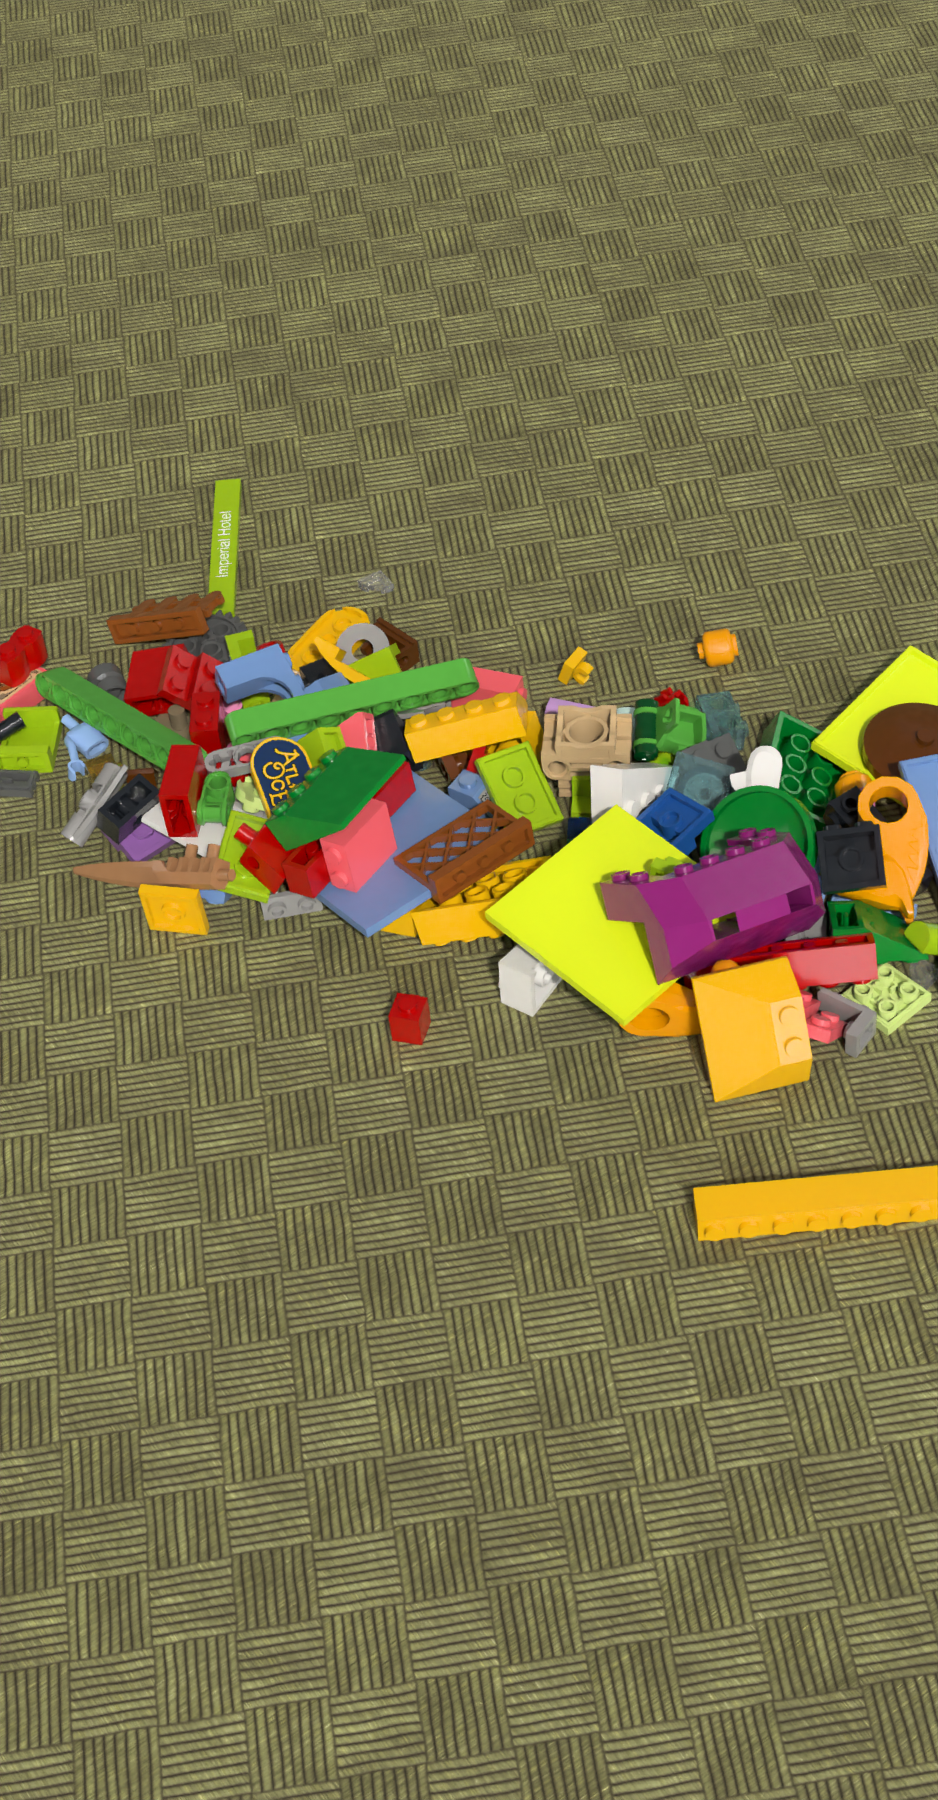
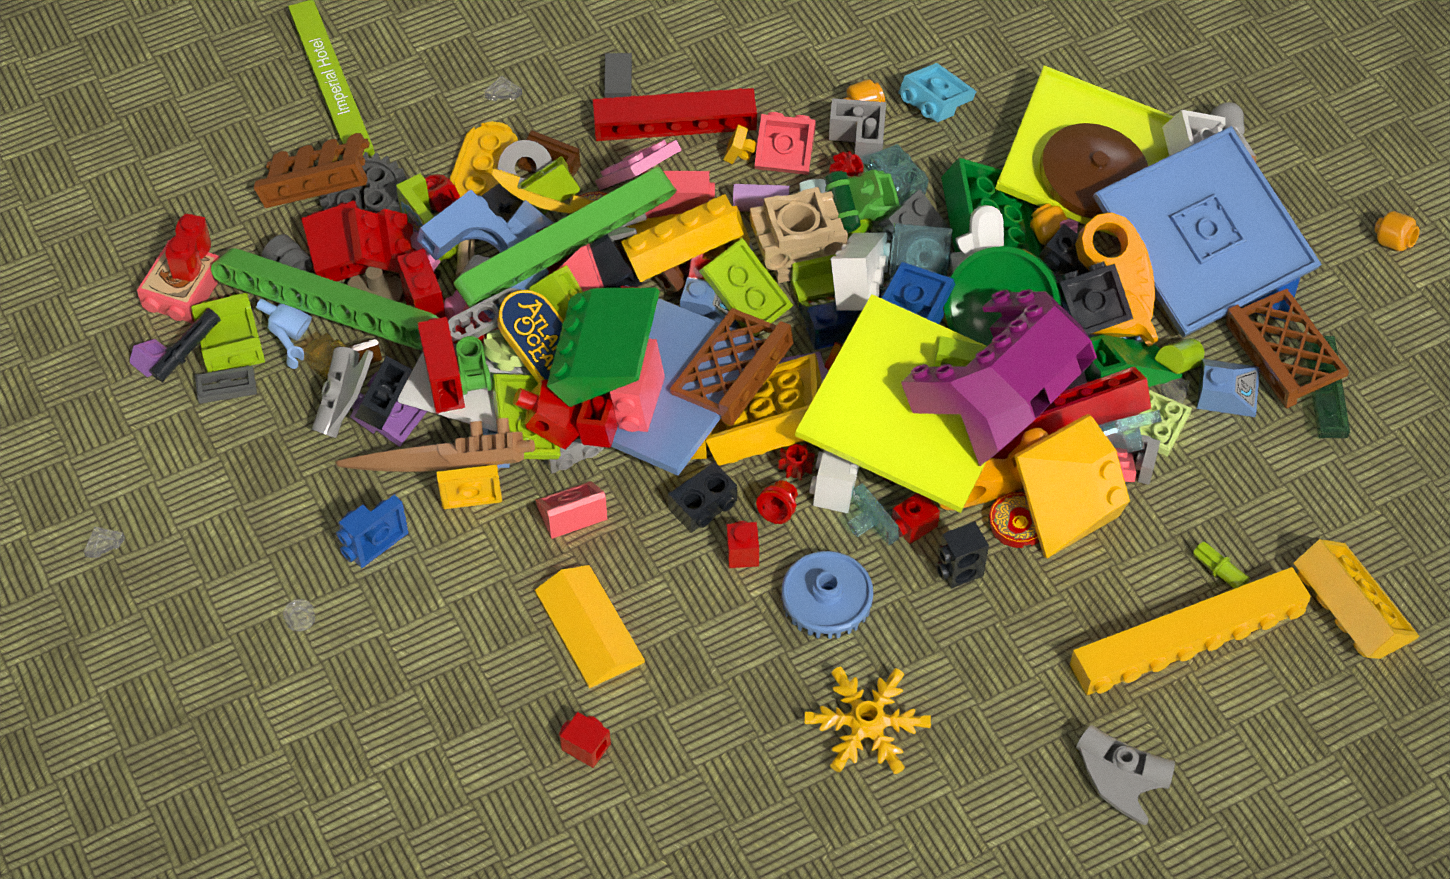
camera: 25 degrees left, 10 degrees up
(68, 928) = (371, 533): none -> blue plate
(178, 1157) = (585, 739): none -> red brick
(233, 1059) = (588, 625): none -> yellow slope
(264, 955) = (573, 509): none -> coral slope
(392, 968) = (698, 492): none -> black brick
(458, 1206) = (867, 720): none -> yellow piece
(467, 994) = (777, 502): none -> red piece
(473, 1082) = (827, 593): none -> medium blue wheel
(475, 649) = (636, 163): none -> bright pink plate
(490, 589) = (618, 75): none -> dark grey tile
(494, 952) = (796, 461): none -> red gear
(526, 629) = (674, 114): none -> red brick
(549, 1022) = (872, 516): none -> clear light blue tile
(592, 1032) = (915, 517): none -> red brick
(619, 1073) = (962, 555): none -> black brick
(621, 673) = (785, 143): none -> coral plate
(689, 1060) = (1012, 521): none -> tile
(698, 1318) = (1122, 771): none -> light grey pin
(699, 667) = (858, 123): none -> light grey brick
(794, 654) = (935, 92): none -> medium azure plate
(845, 991) = (1130, 428): none -> clear light blue tile
(893, 1148) = (1220, 566): none -> lime axle

